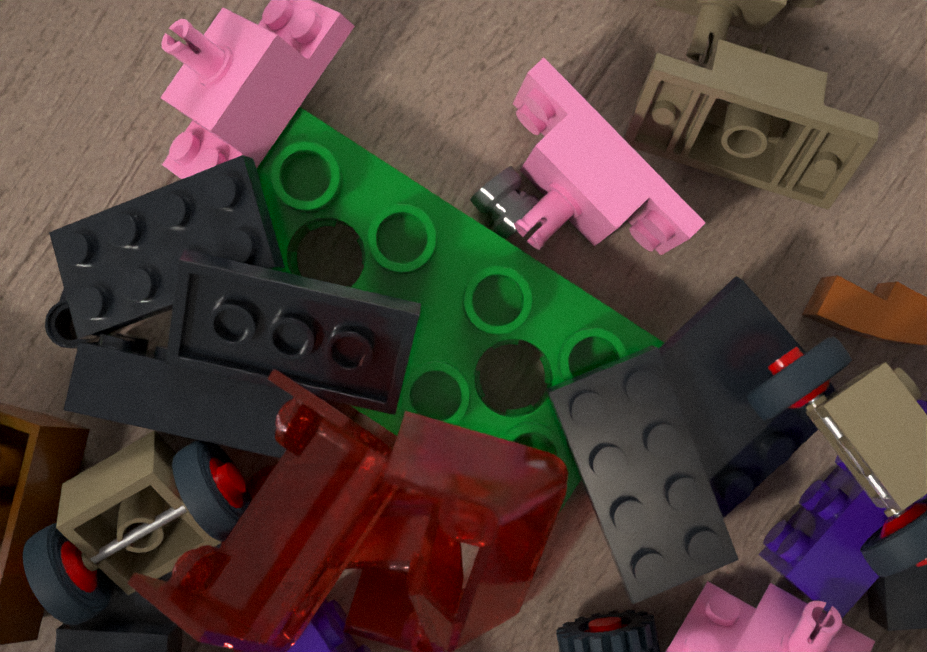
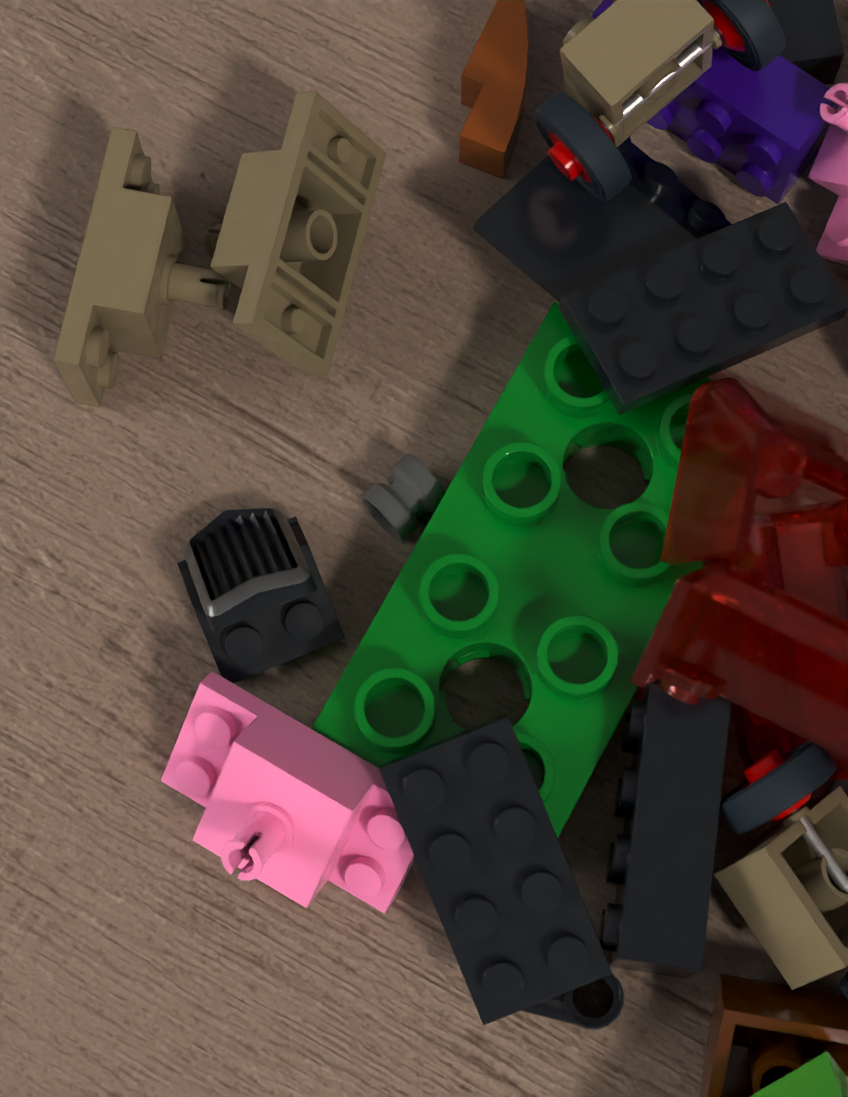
camera: 90 degrees left, 15 degrees down
(318, 333) = (575, 712): black plate -> none
(435, 73) = (257, 591): none -> black piece
(592, 172) = (363, 400): bright pink brick -> none

